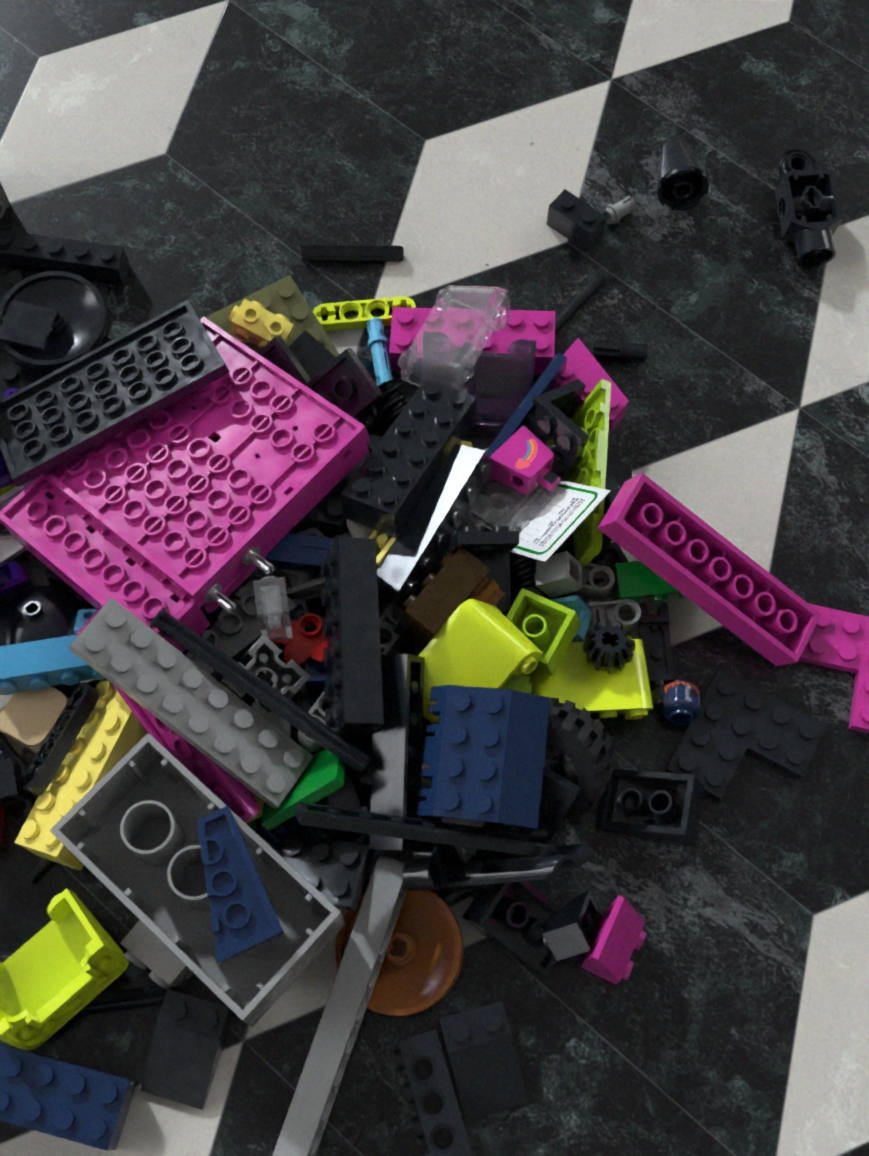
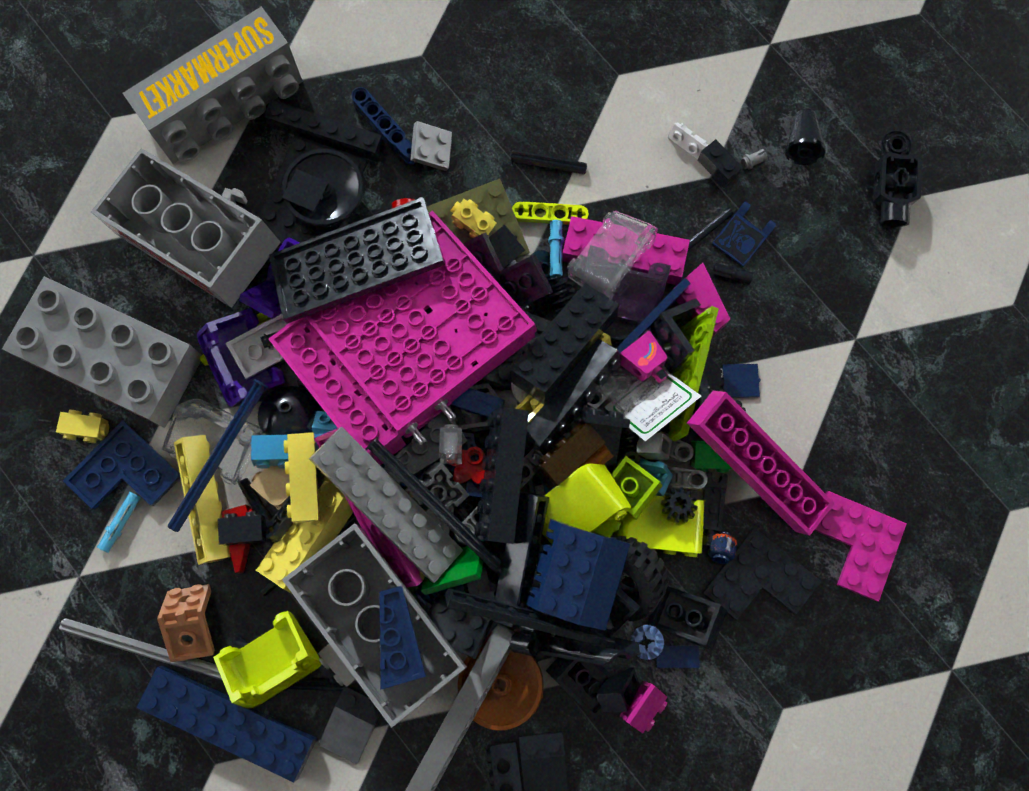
camera: 10 degrees right, 10 degrees up
(66, 693) = (302, 477): none -> light yellow brick
(118, 231) = (380, 119): none -> dark blue piece
(192, 253) = (431, 146): none -> light grey plate
(527, 200) = (682, 136): none -> white hinge
(612, 856) = (654, 648): none -> light blue gear
(622, 307) = (740, 237): none -> flag
(647, 865) = (678, 657): none -> dark blue tile
(665, 474) = (741, 380): none -> dark blue piece

